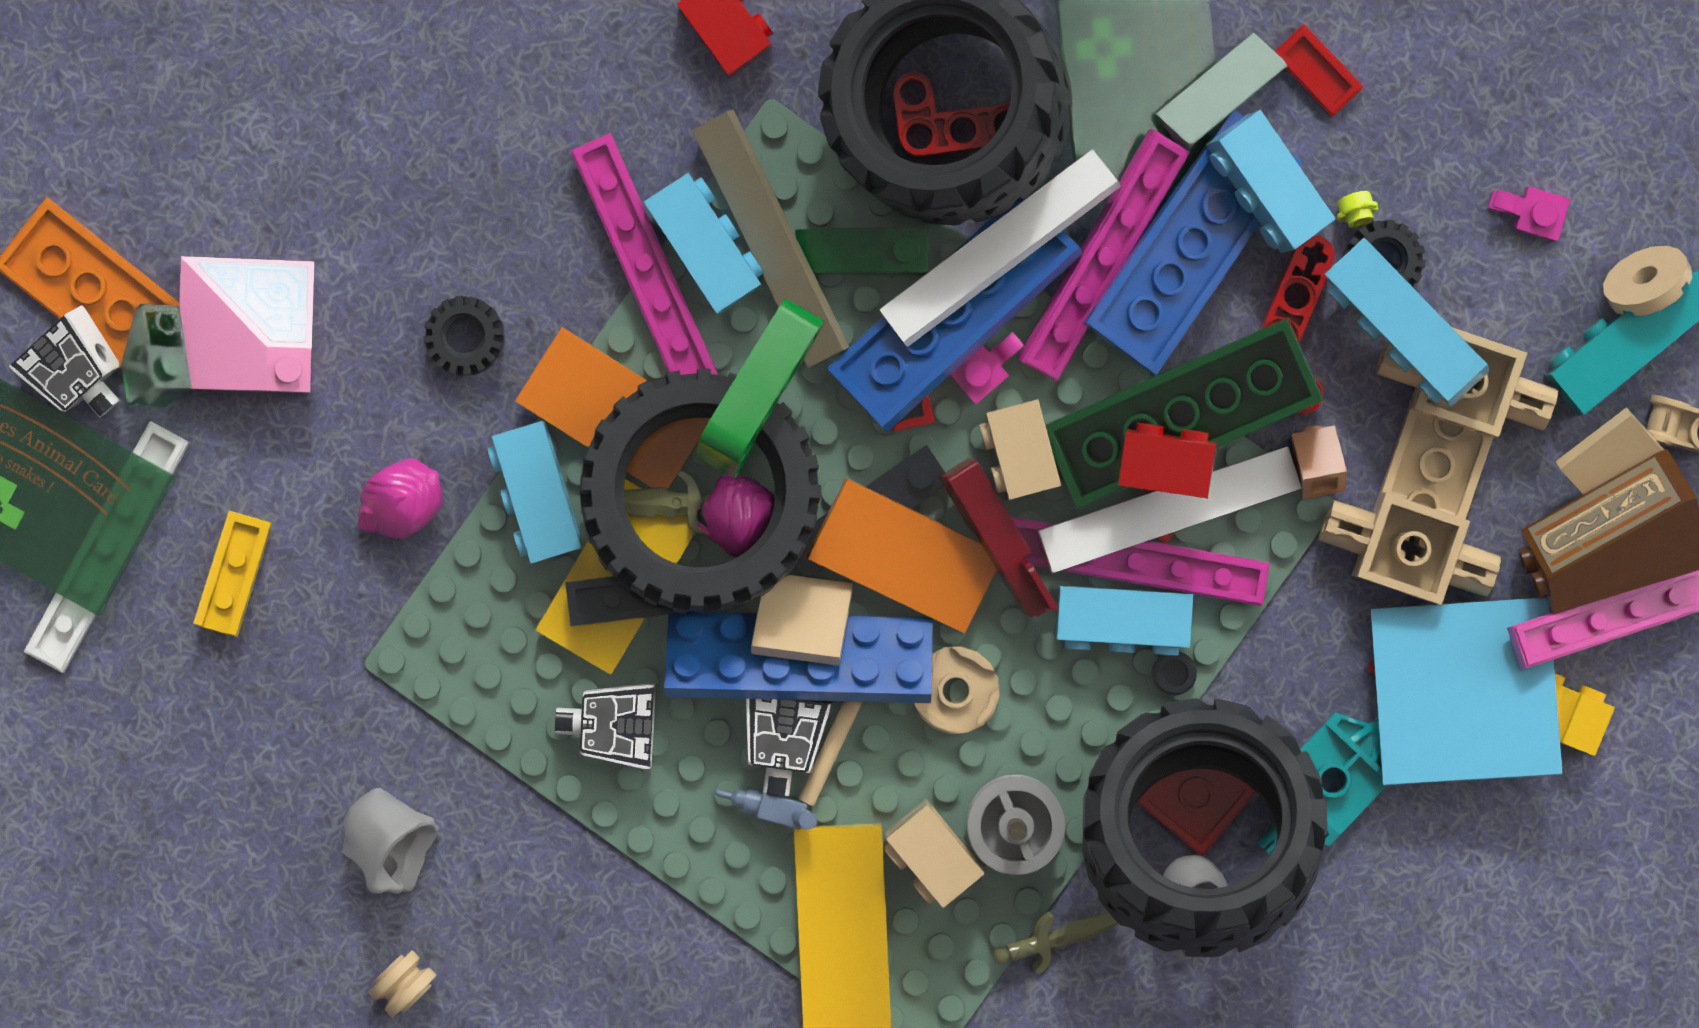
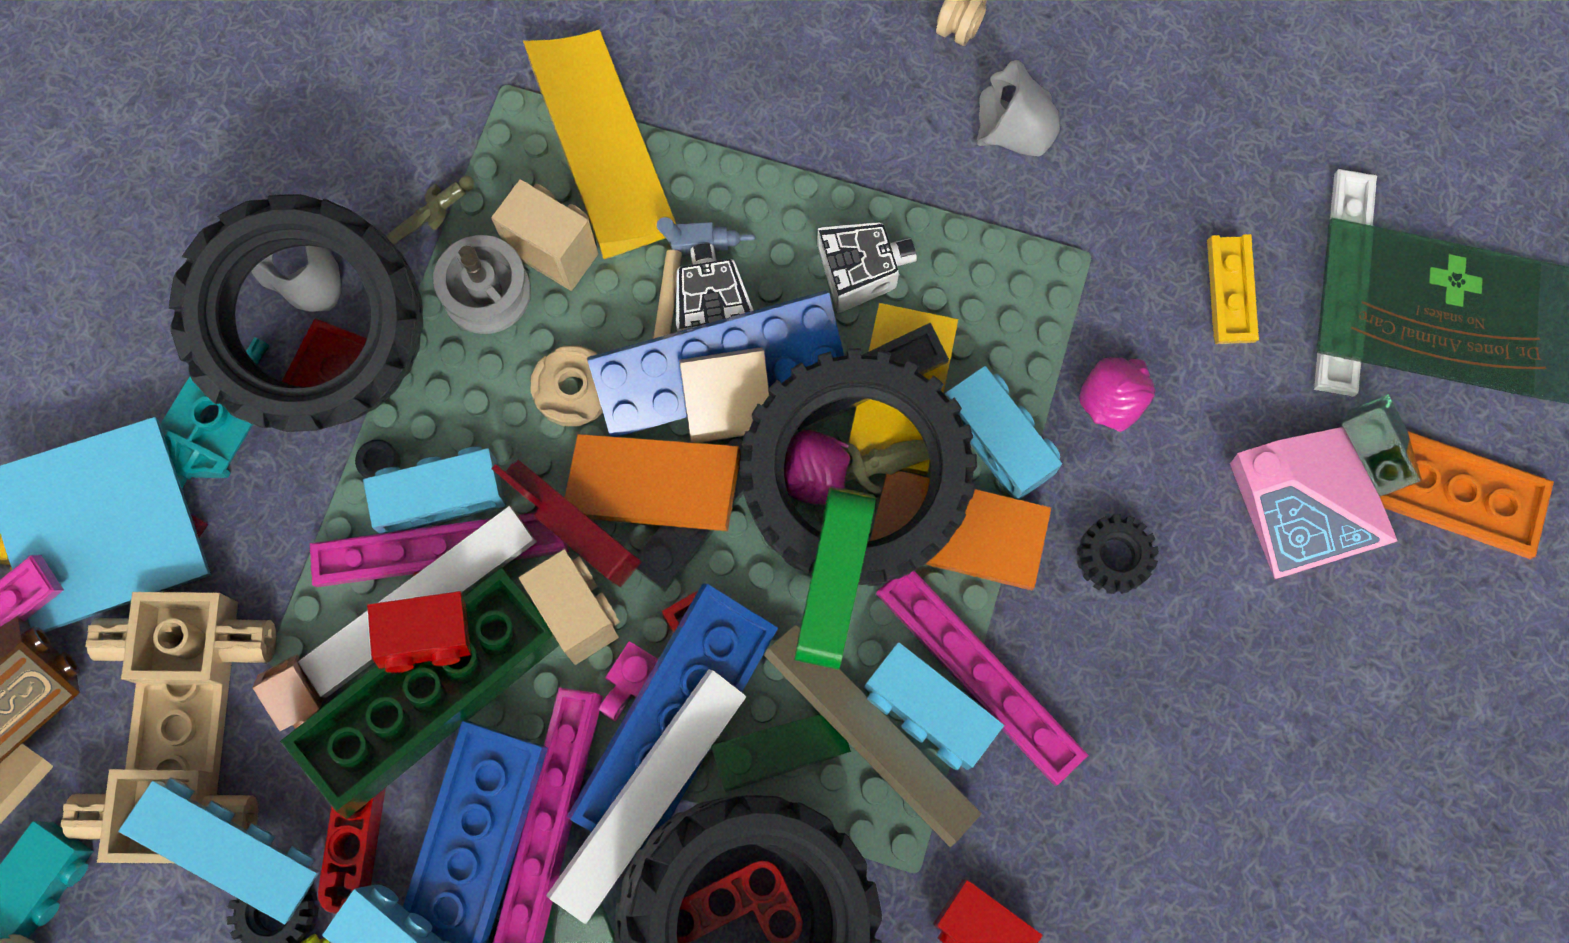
camera: 165 degrees right, 15 degrees down
(70, 364) = (1451, 415): torso -> none

